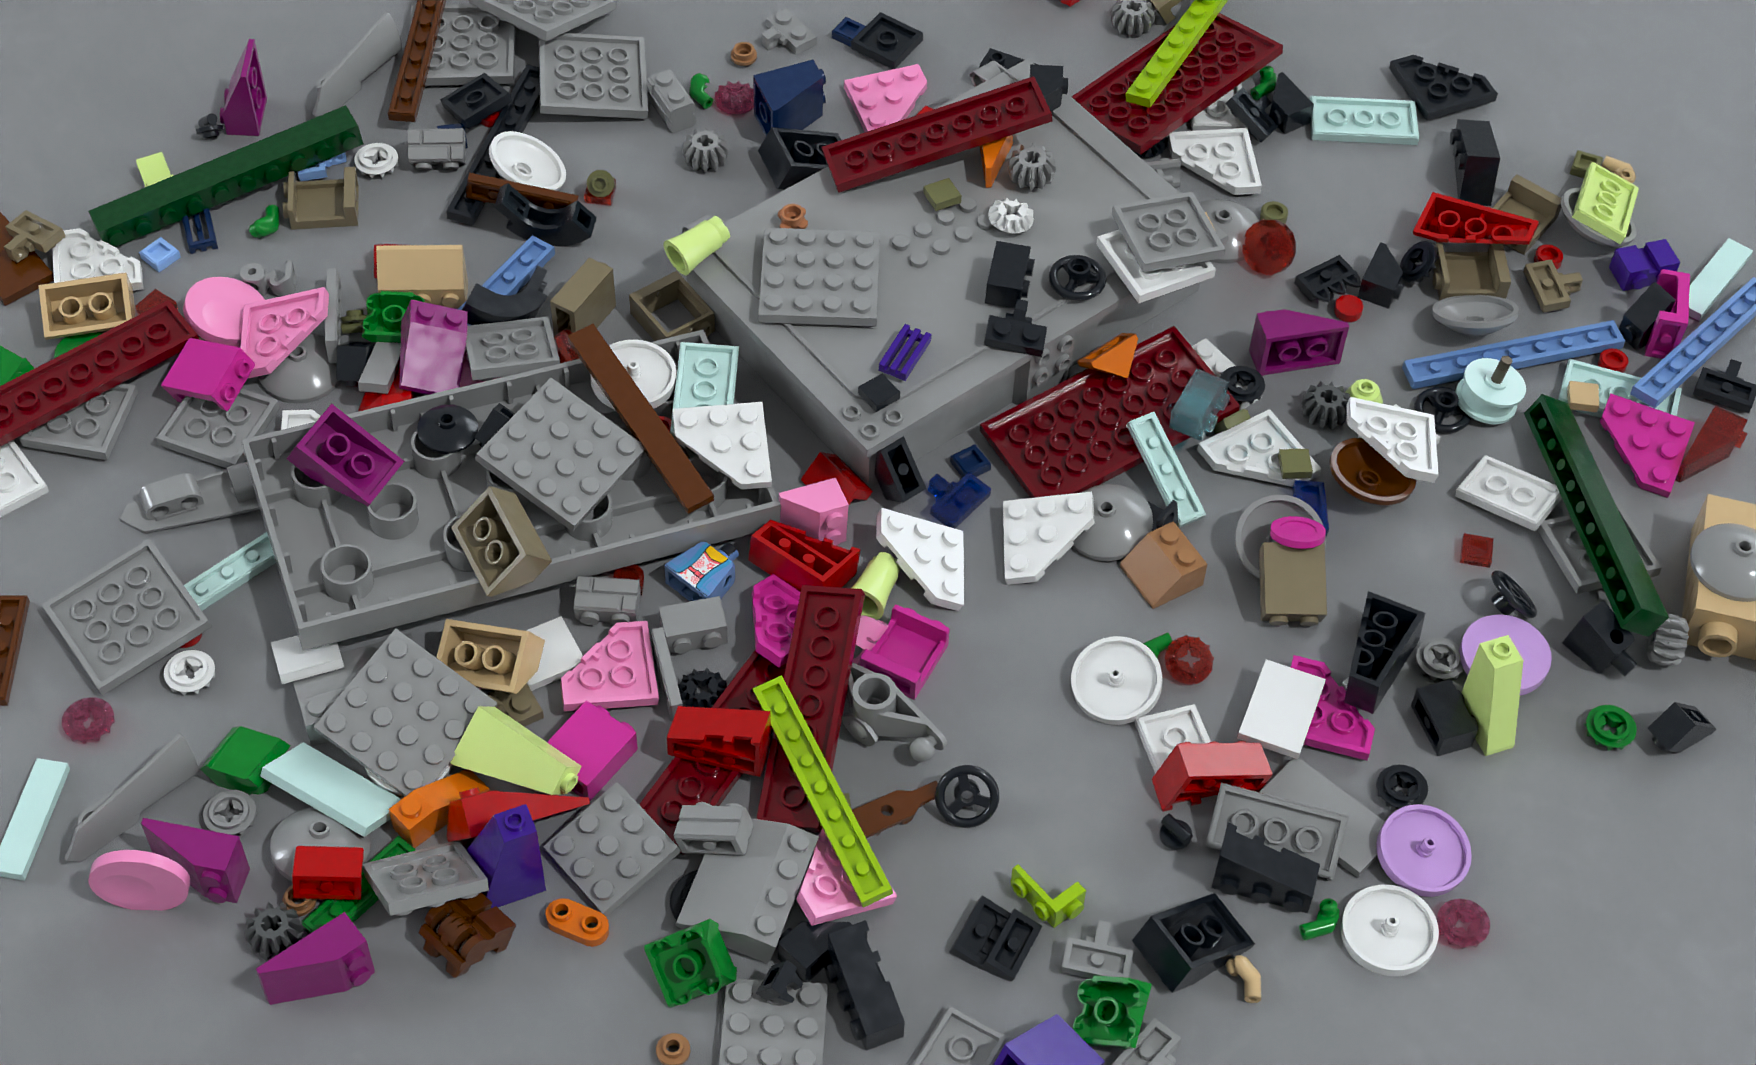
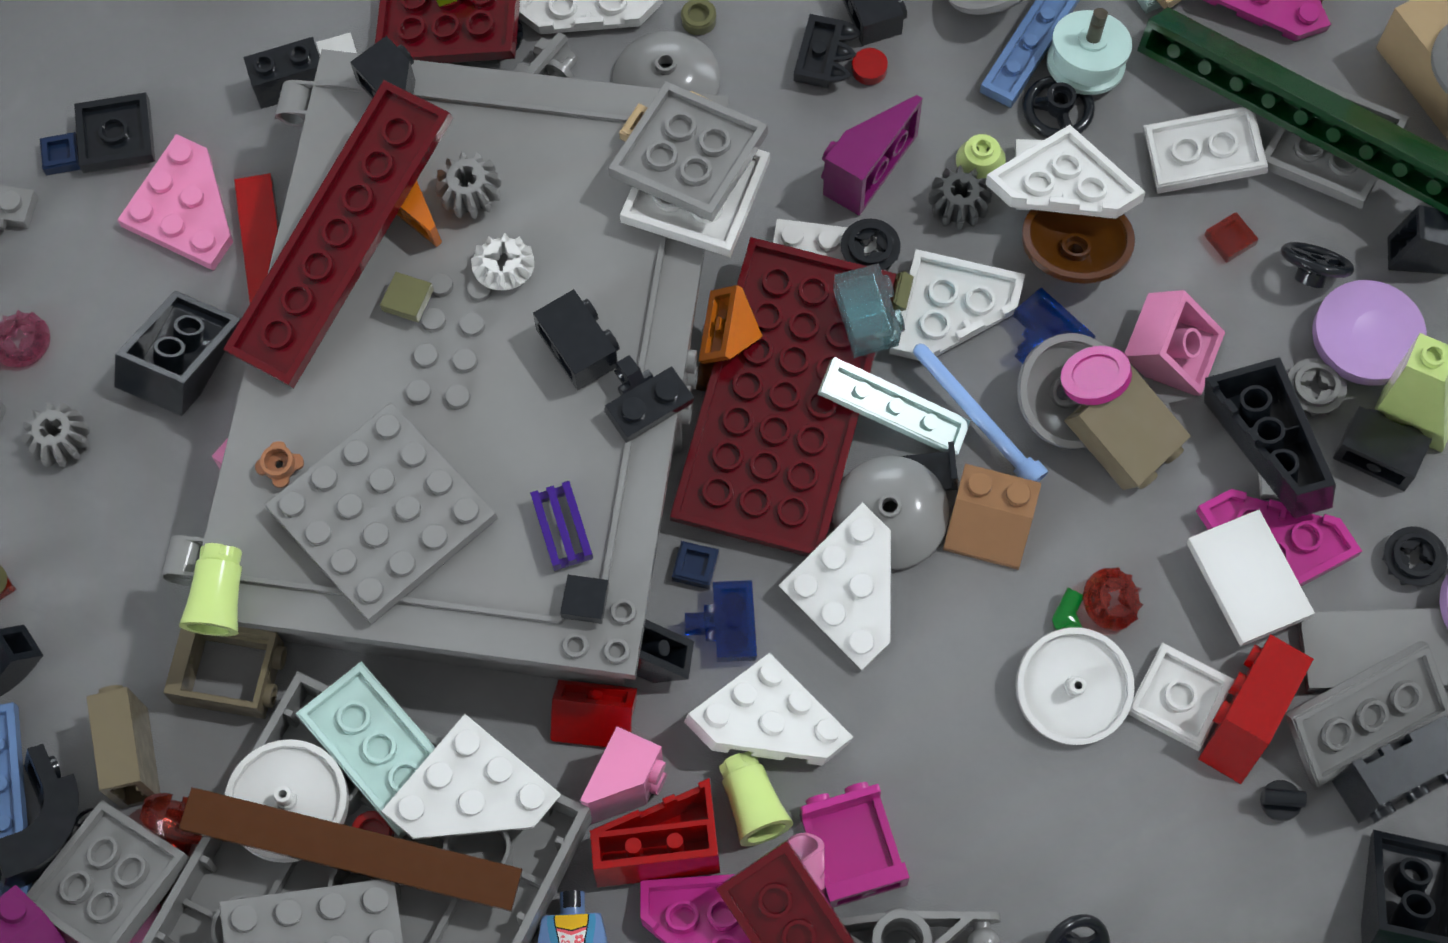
camera: 40 degrees left, 15 degrees up
(789, 96) = (89, 299): dark blue slope -> none
(1079, 272) = (640, 262): black piece -> none
(1212, 558) = (1024, 467): none -> light blue piece
(1269, 247) = (743, 63): clear red tile -> none
(1295, 463) = (1001, 292): olive tile -> none
(1376, 566) = (1174, 341): none -> bright pink slope

